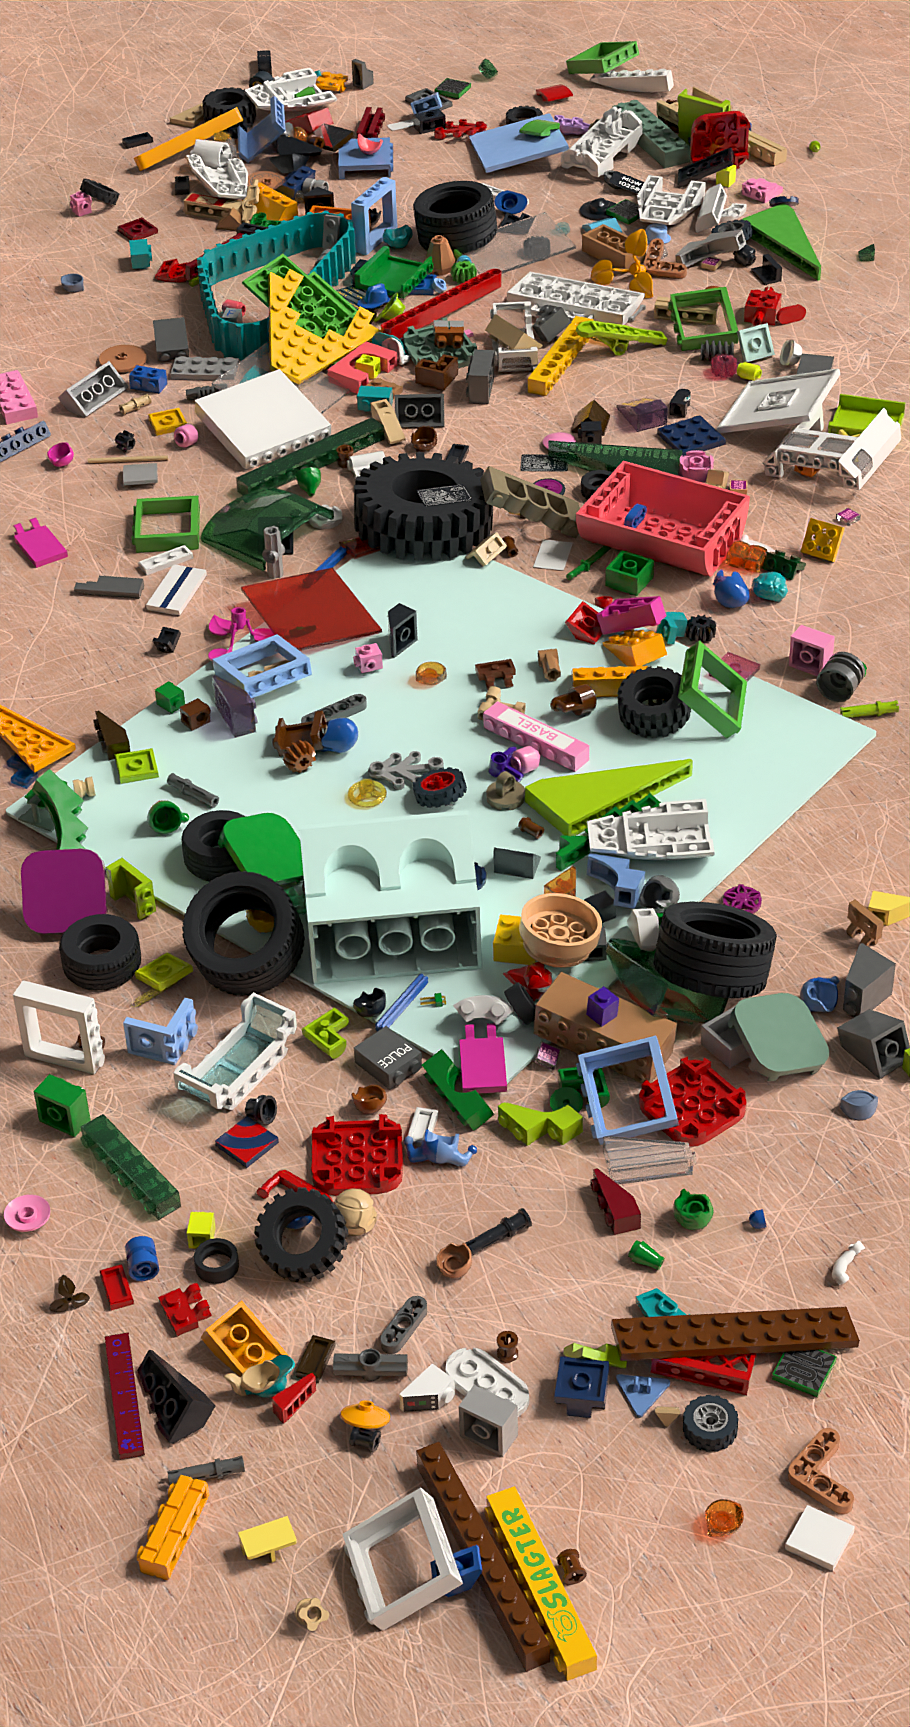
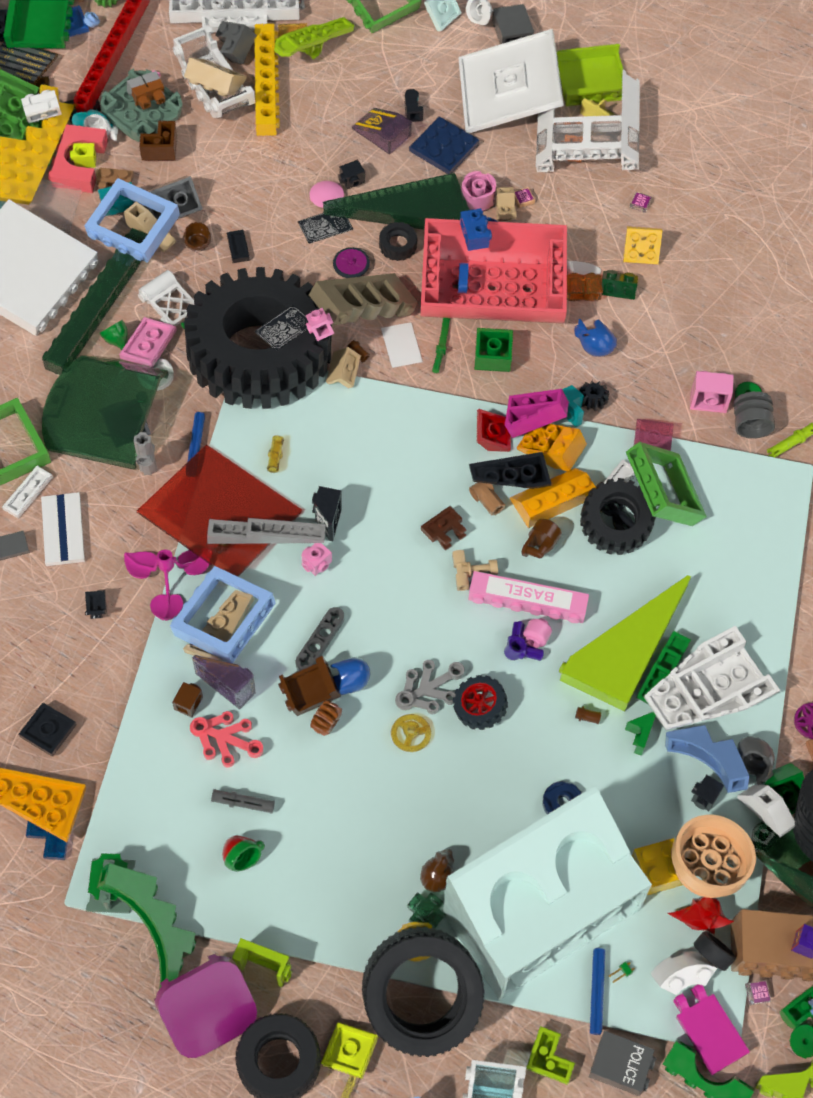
camera: 30 degrees left, 20 degrees up
(71, 703) = (47, 729): none -> black plate
(82, 788) = (133, 845): tan wheel -> none
(111, 735) = (124, 765): dark brown slope -> none
(136, 766) = (165, 789): lime tile -> none
(169, 697) = (149, 686): green brick -> none
(195, 736) = (224, 736): none -> coral plant
(199, 841) = (316, 843): black tyre -> none
(264, 846) = (375, 866): green tile -> none
(331, 493) = (148, 342): none -> bright pink tile
(333, 624) = (264, 531): none -> light grey slope
(343, 454) = (131, 286): reddish brown wheel -> none
(348, 317) = (41, 106): none -> white brick
(357, 547) = (213, 407): clear red slope -> none
(369, 429) = (140, 251): none -> light blue piece
(370, 1004) = (573, 1008): black hair -> none
(374, 297) = (38, 60): blue piece -> none
(385, 587) = (275, 454): none -> clear yellow pin
(392, 309) = (62, 69): lime piece -> none
(431, 673) = (383, 551): clear orange hat -> none
(468, 498) = (319, 324): none -> bright pink brick
(480, 376) = (209, 136): dark grey brick -> none
(505, 792) = (539, 680): dark tan tile -> none
(515, 863) = (600, 764): black slope -> none
(563, 884) = (664, 784): clear orange slope -> none
(588, 649) = (516, 471): none -> black wedge
(592, 412) = (337, 153): dark brown slope -> none
(603, 601) = (486, 392): red tile -> none
(660, 474) = (475, 229): none -> blue brick
(712, 350) = (410, 26): dark grey piece -> none
(724, 365) = (426, 44): clear pink gear -> none
(749, 371) = (453, 44): neon yellow brick -> none
(770, 586) = (625, 319): teal hair -> none

